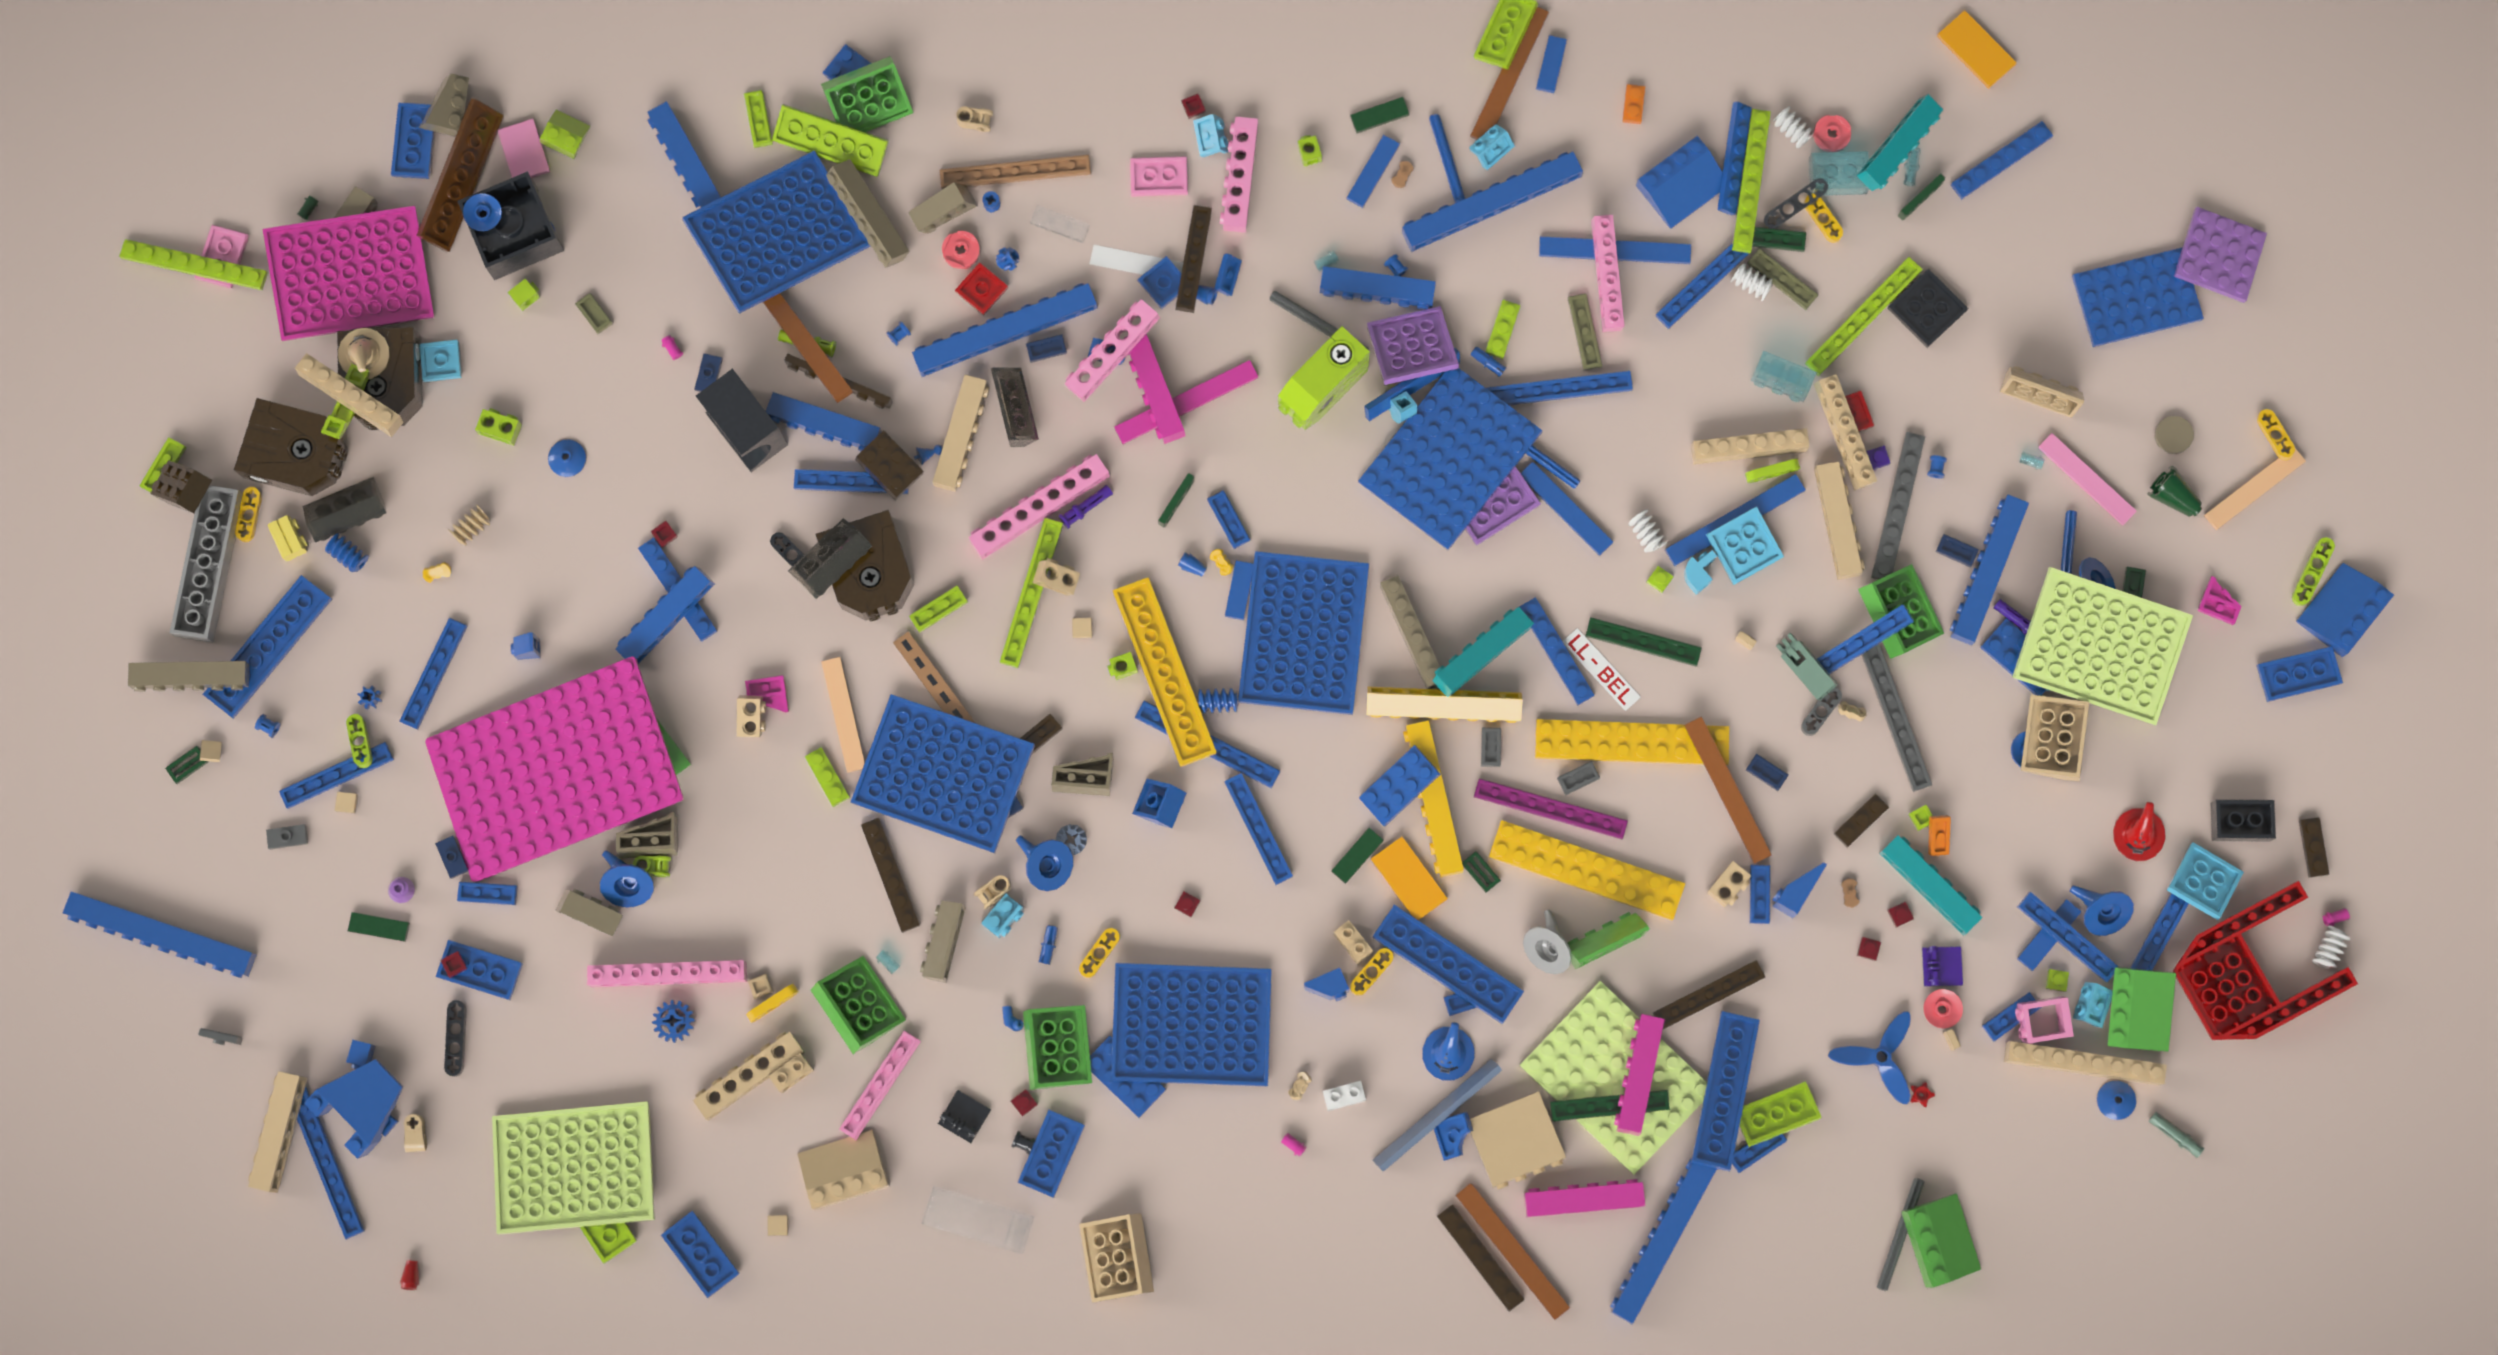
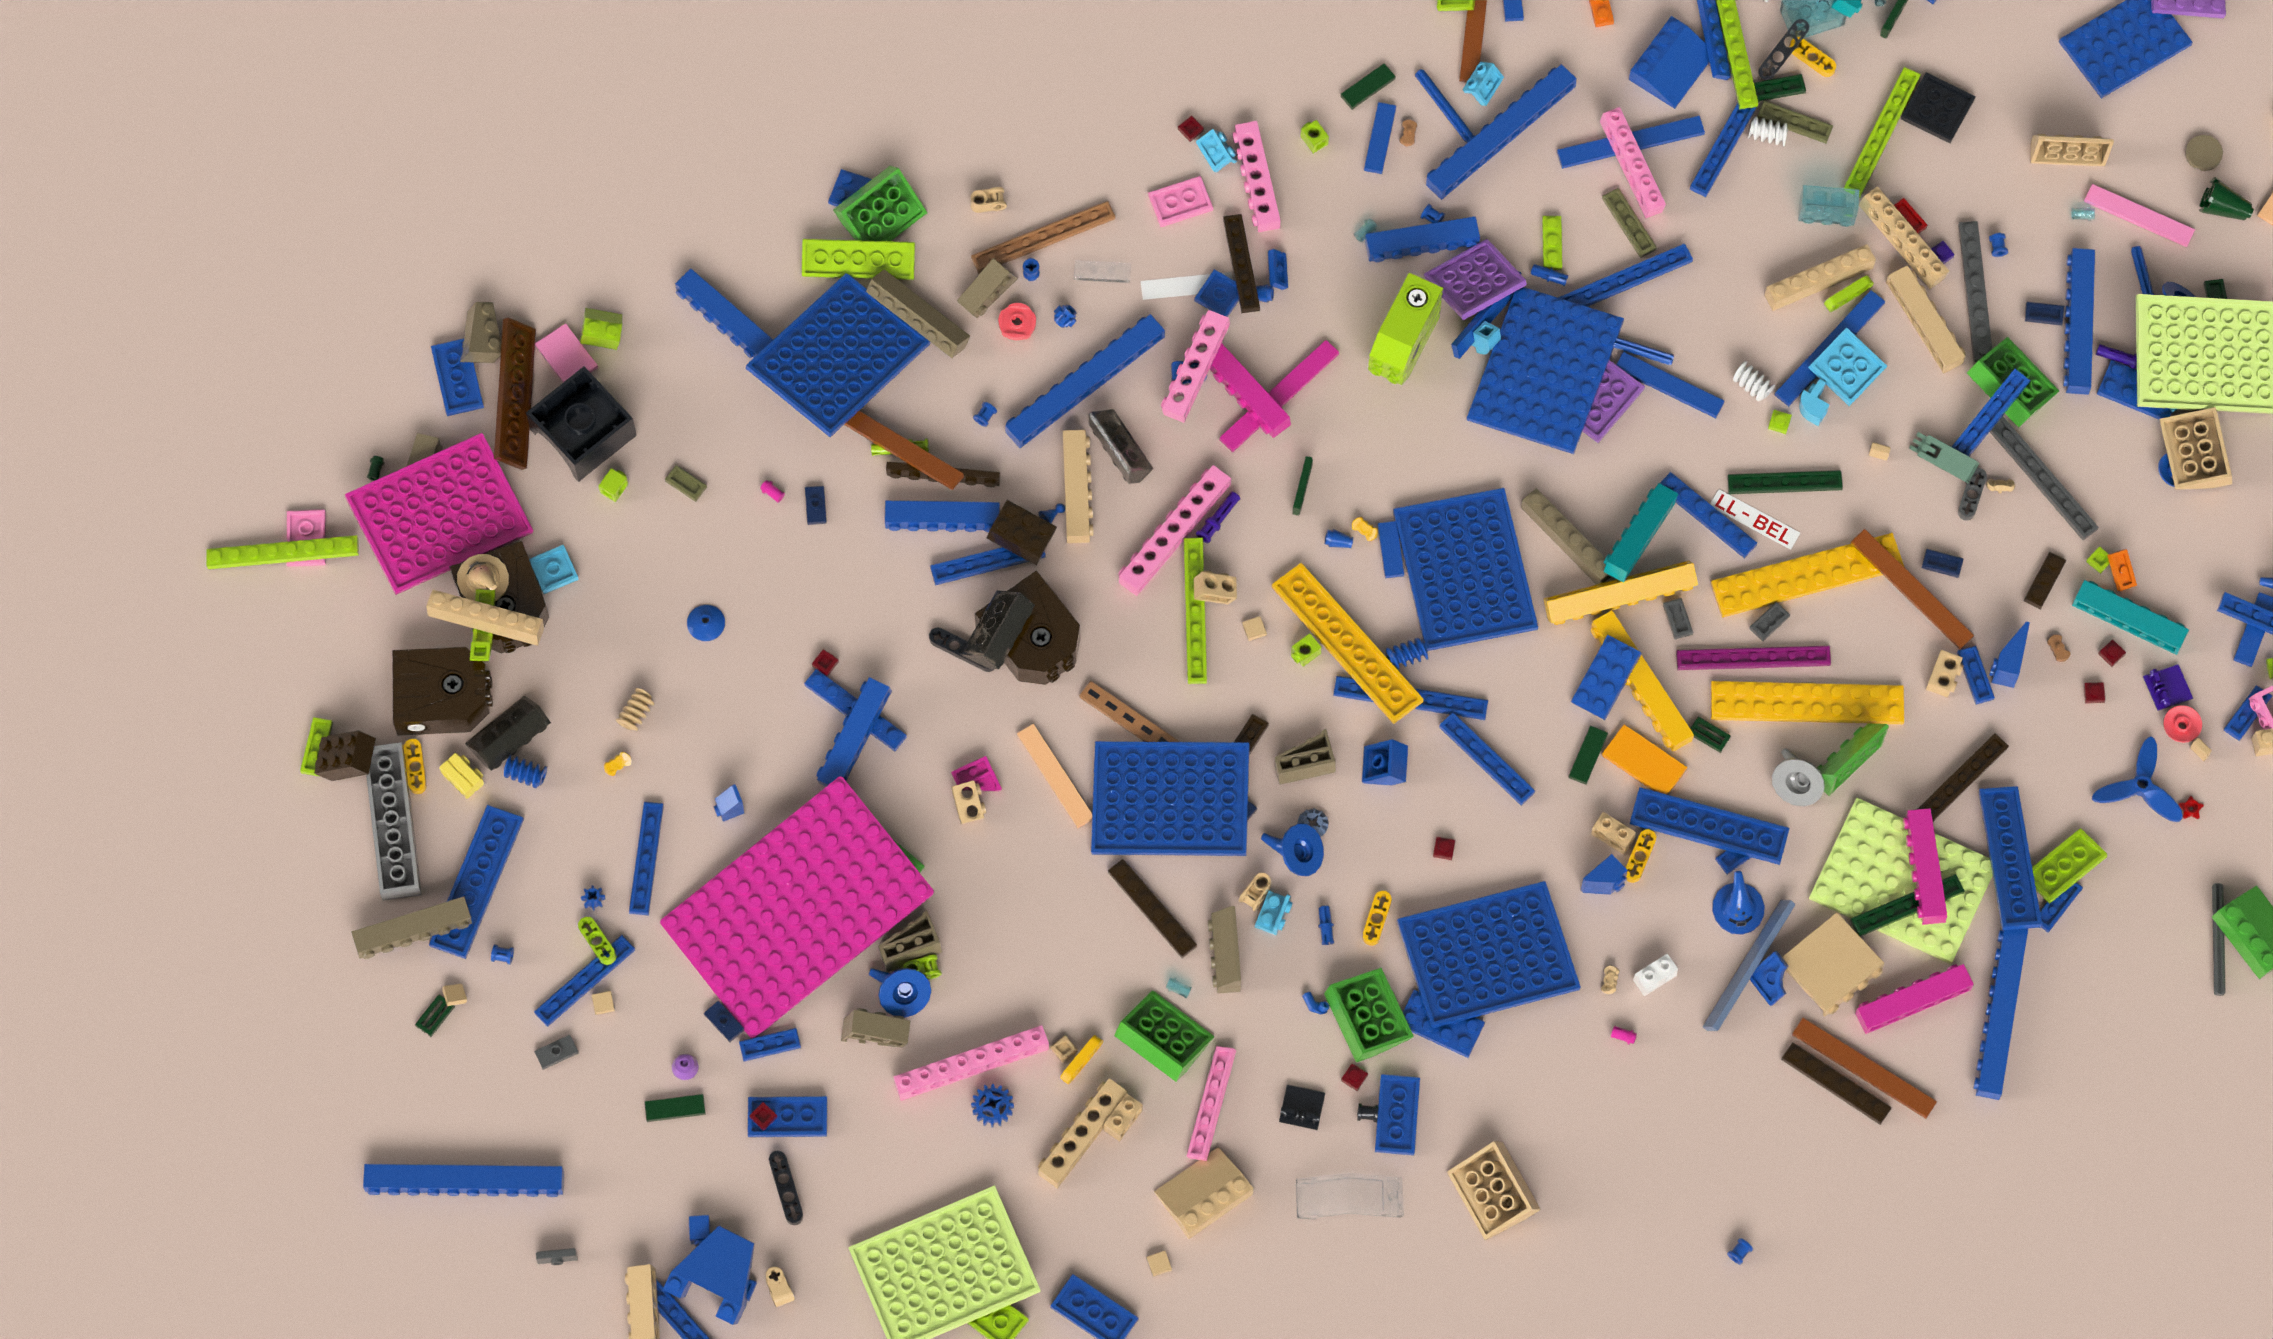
camera: 20 degrees left, 10 degrees down
(475, 206) = (554, 407): blue dish -> none
(496, 431) = (630, 617): lime brick -> none
(741, 420) = (869, 531): black piece -> none
(758, 119) = (781, 261): lime tile -> none
(827, 777) = (1059, 837): lime plate -> none
(938, 609) = (1111, 652): lime plate -> none
(981, 289) = (1049, 351): red plate -> none
(1046, 348) = (1130, 386): dark blue plate -> none
(1228, 519) = (1357, 489): blue tile -> none
(1304, 314) = (1361, 284): dark grey axle -> none

